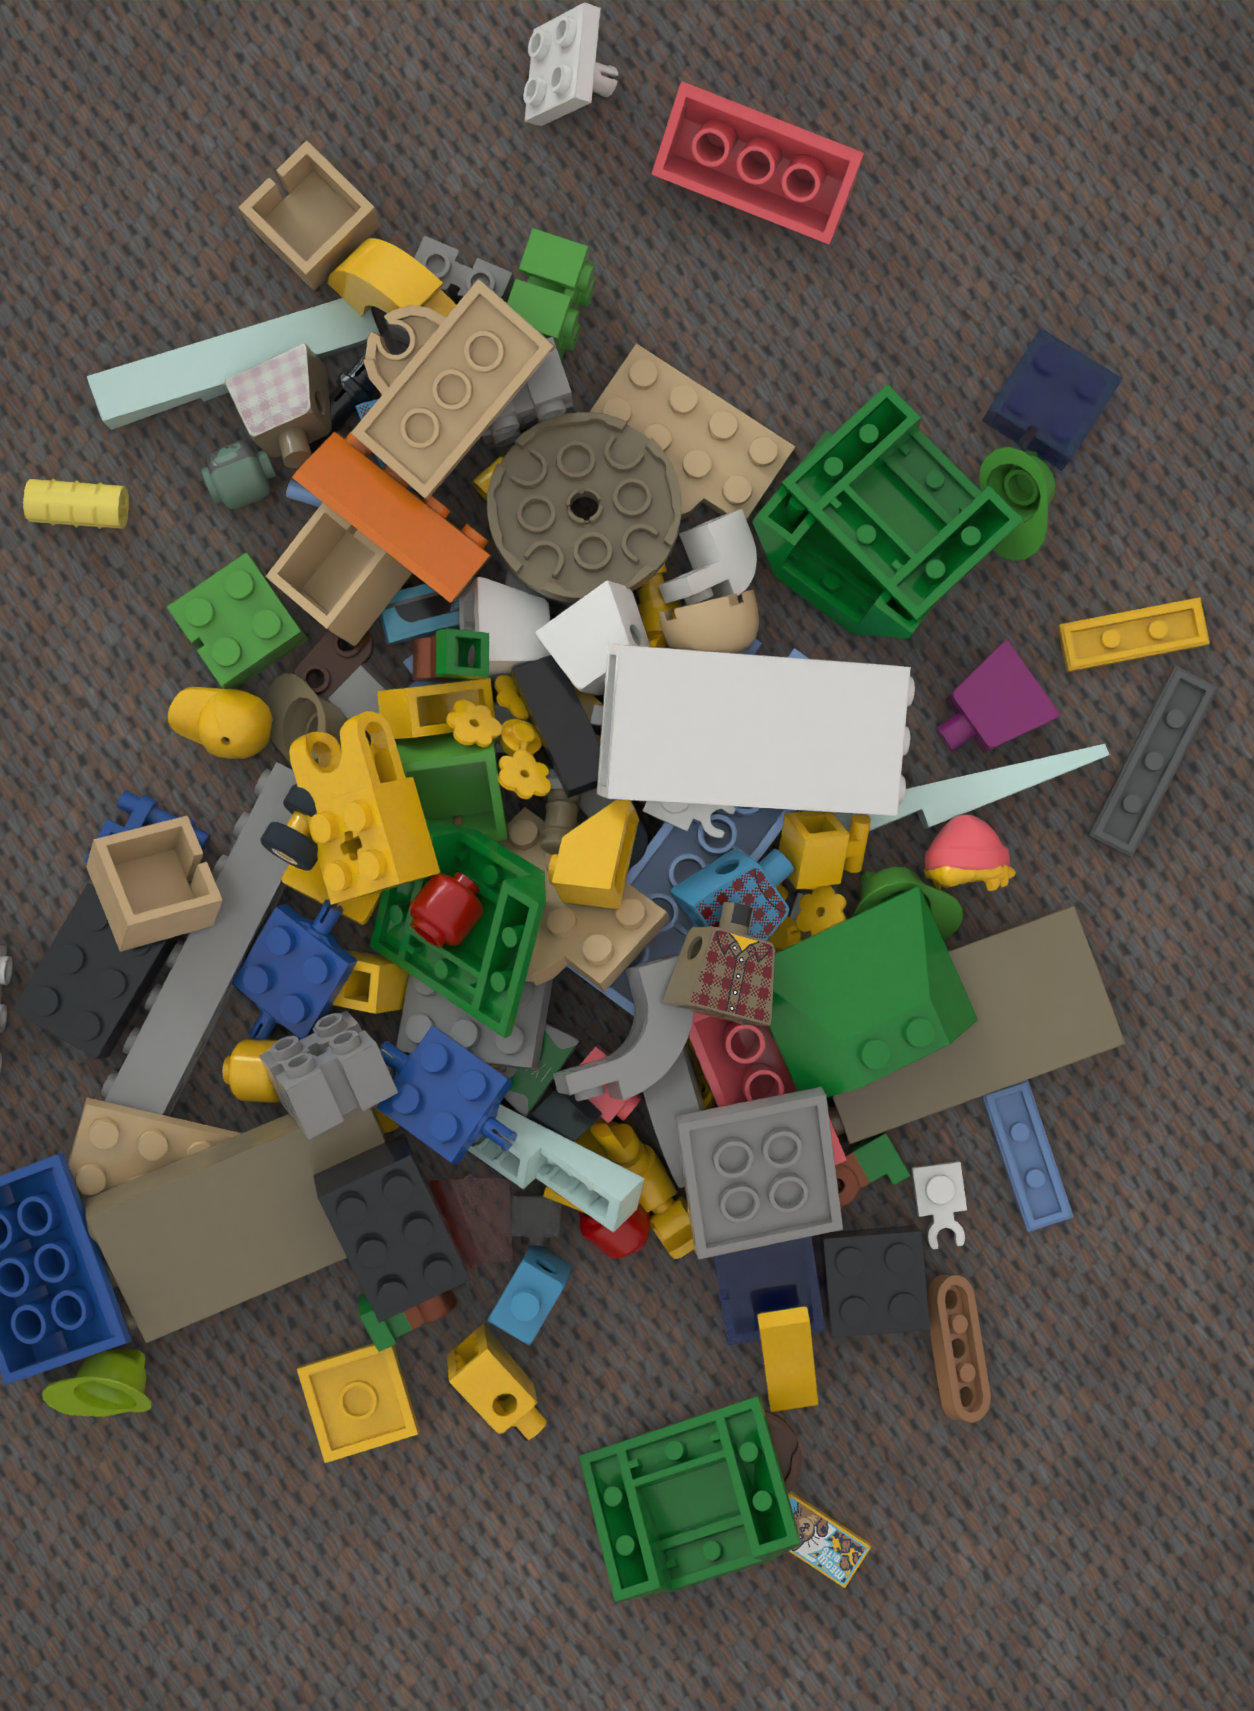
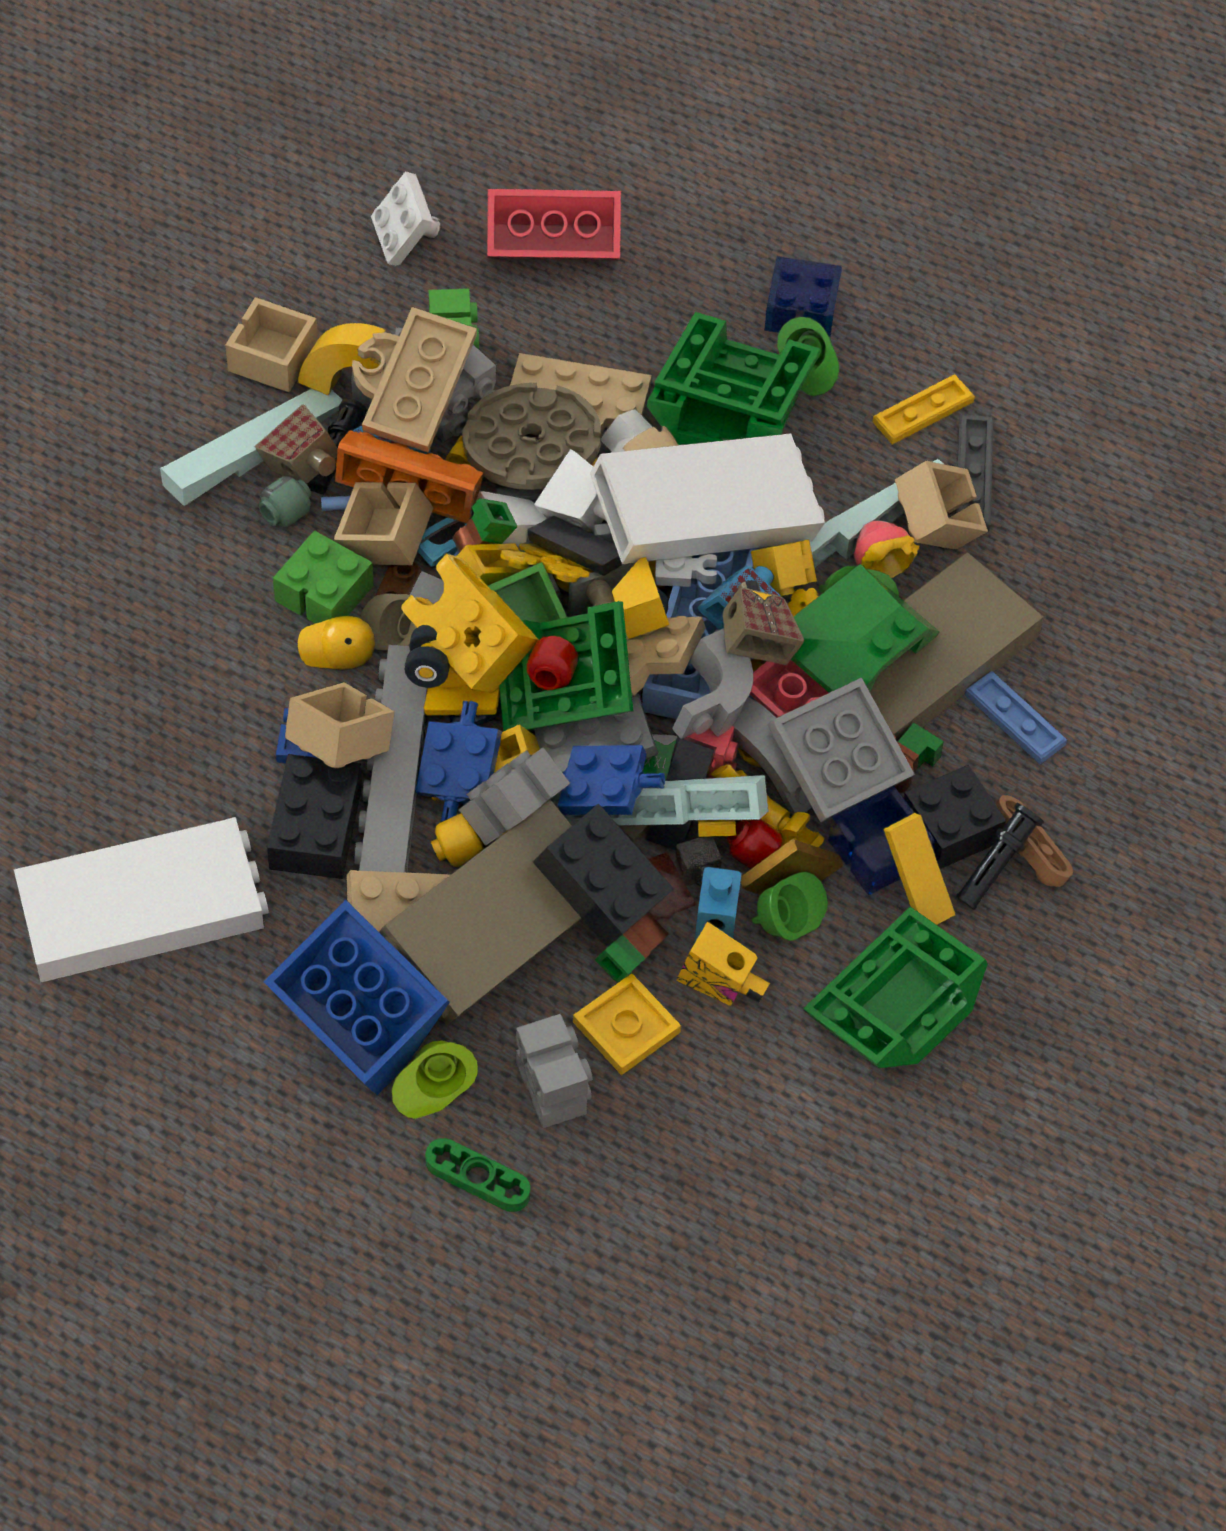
camera: 35 degrees left, 30 degrees down
(76, 503) = (178, 553): light yellow axle -> none
(104, 1544) = (447, 1172): none -> green beam
(234, 1449) = (553, 1070): none -> light grey brick
(616, 1329) = (792, 906): none -> bright green piece
(639, 1282) = (787, 861): none -> pearl gold tile
(826, 1542) = (1007, 1000): tile -> none
(919, 1360) = (1009, 841): none -> black pin
(940, 1193) = (972, 753): white plate -> none
(996, 703) = (857, 467): magenta torso -> none
(1049, 833) = (932, 493): none -> tan piece

